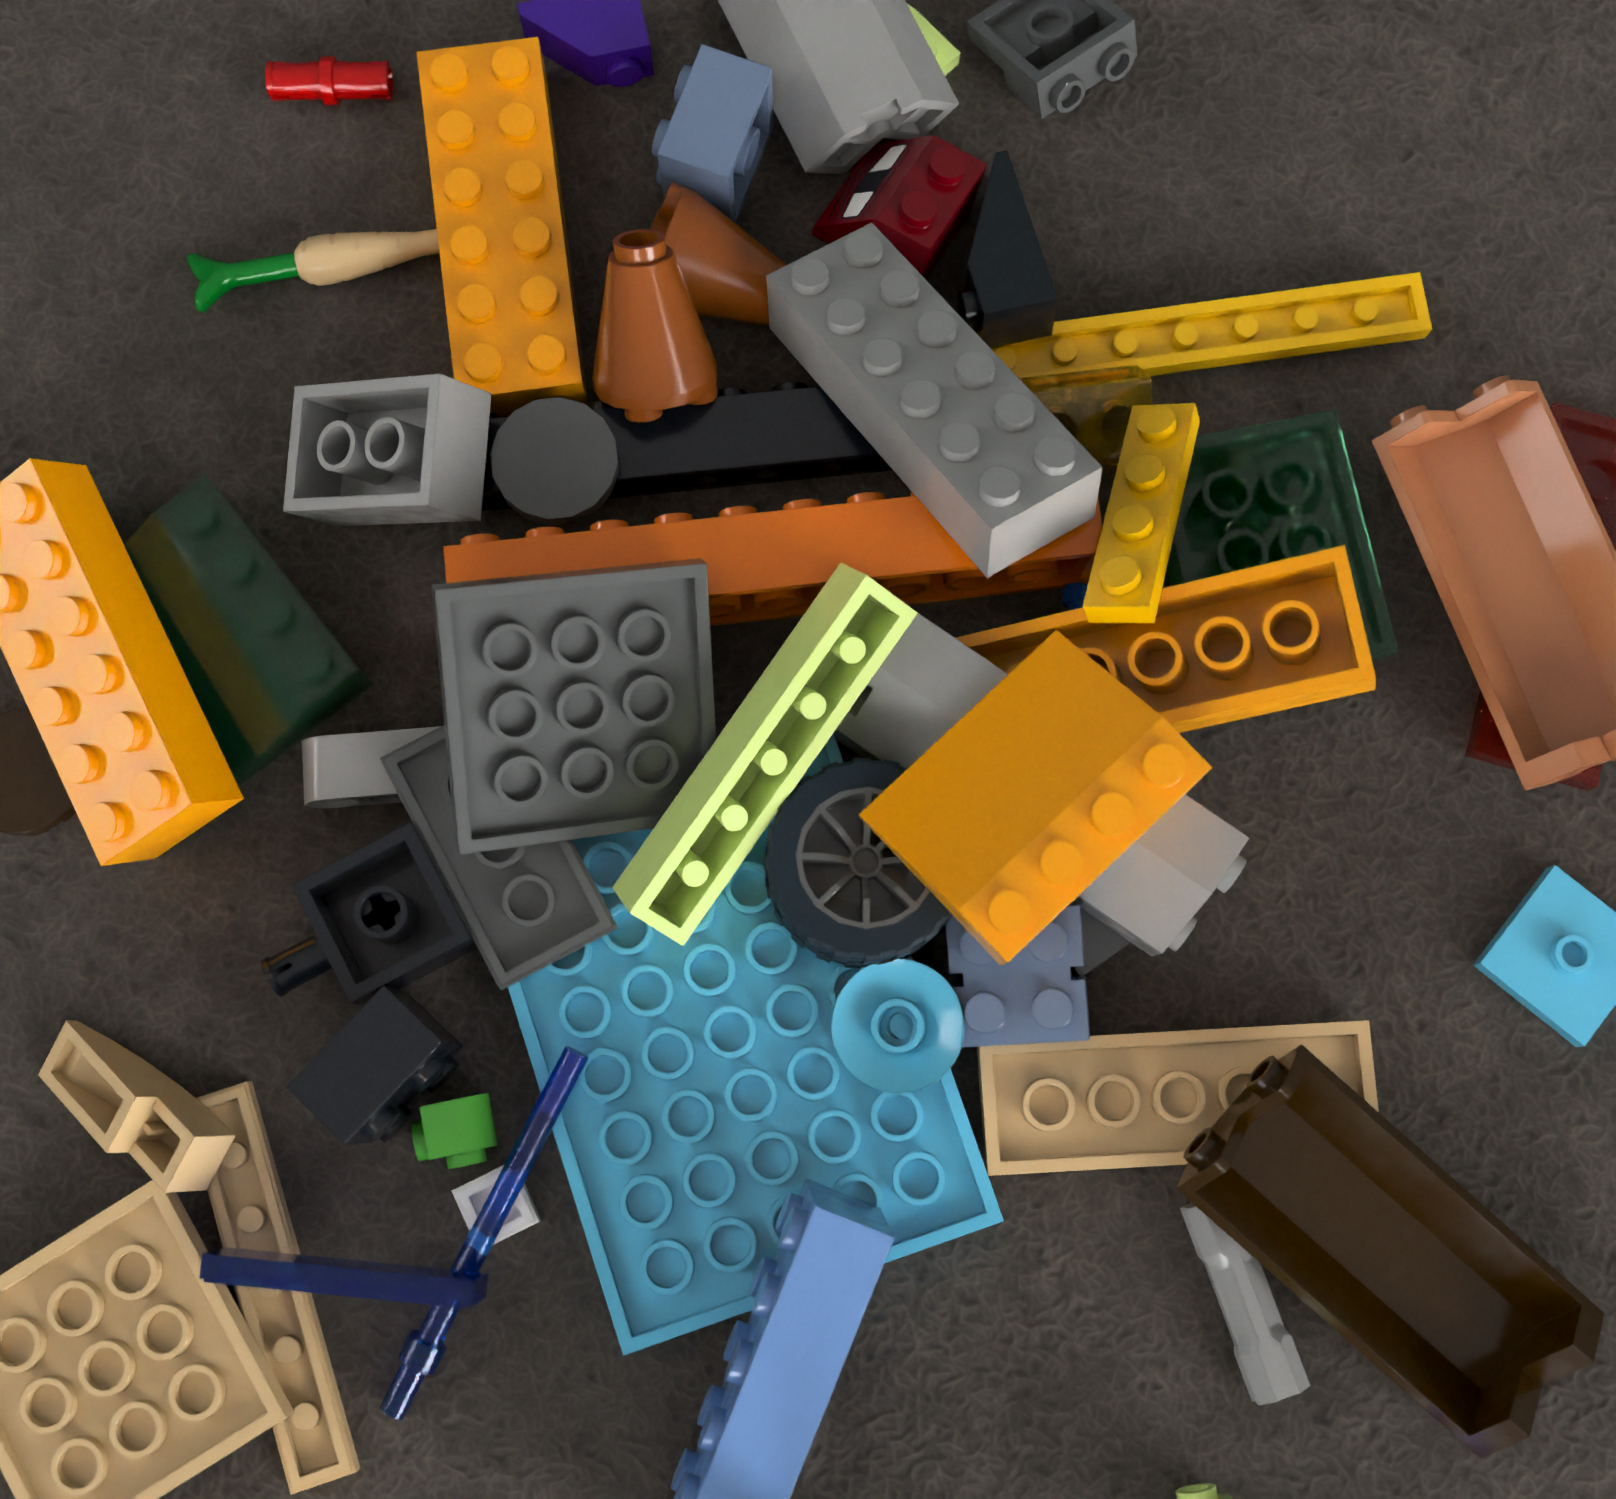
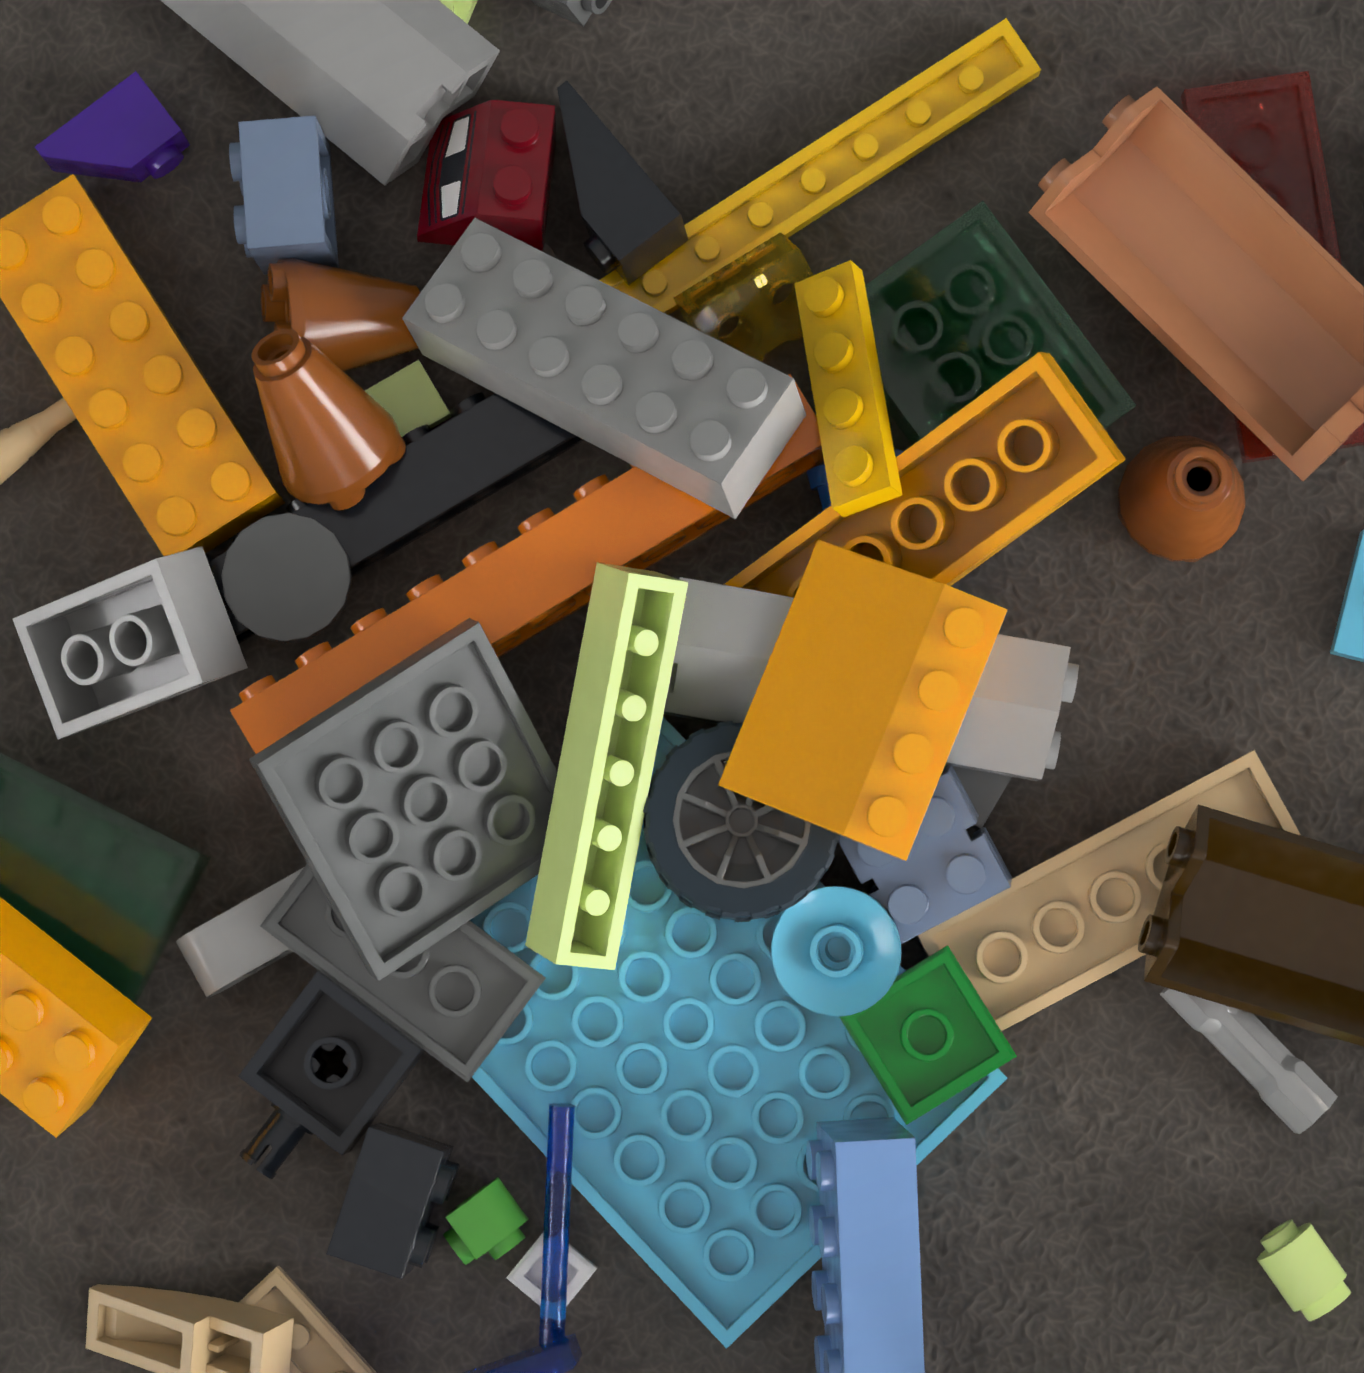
camera: 15 degrees left, 5 degrees up
(742, 363) = (410, 399): none -> yellowish green tile
(948, 1147) = (929, 1036): none -> green tile
(1400, 759) = (1169, 515): none -> dark orange cone

